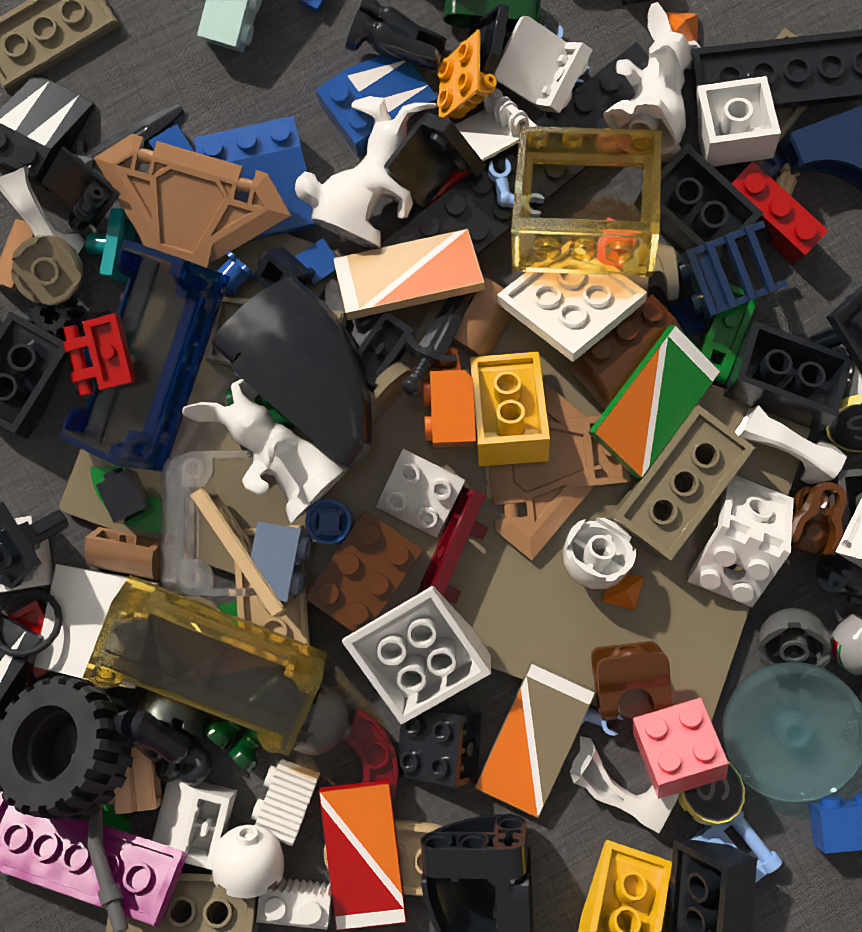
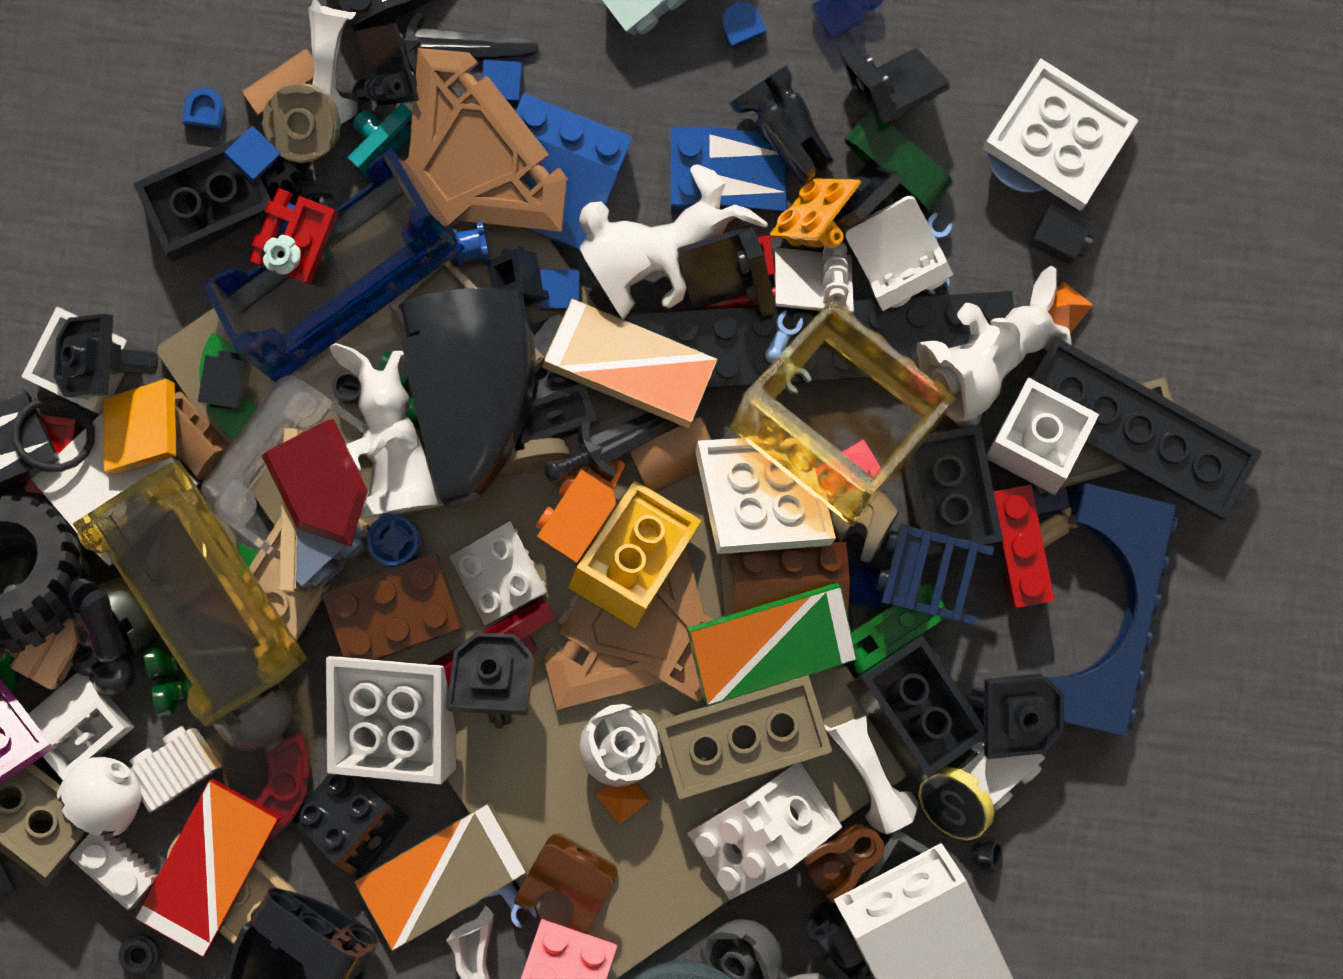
camera: 30 degrees right, 0 degrees up
(27, 317) = (252, 154): none -> blue tile
(84, 572) = (139, 427): none -> light orange tile
(107, 376) = (291, 254): none -> light aqua plate
(214, 432) = (347, 381): none -> black hinge
(245, 515) = (319, 482): none -> dark red tile
(472, 569) = (491, 677): none -> black piece

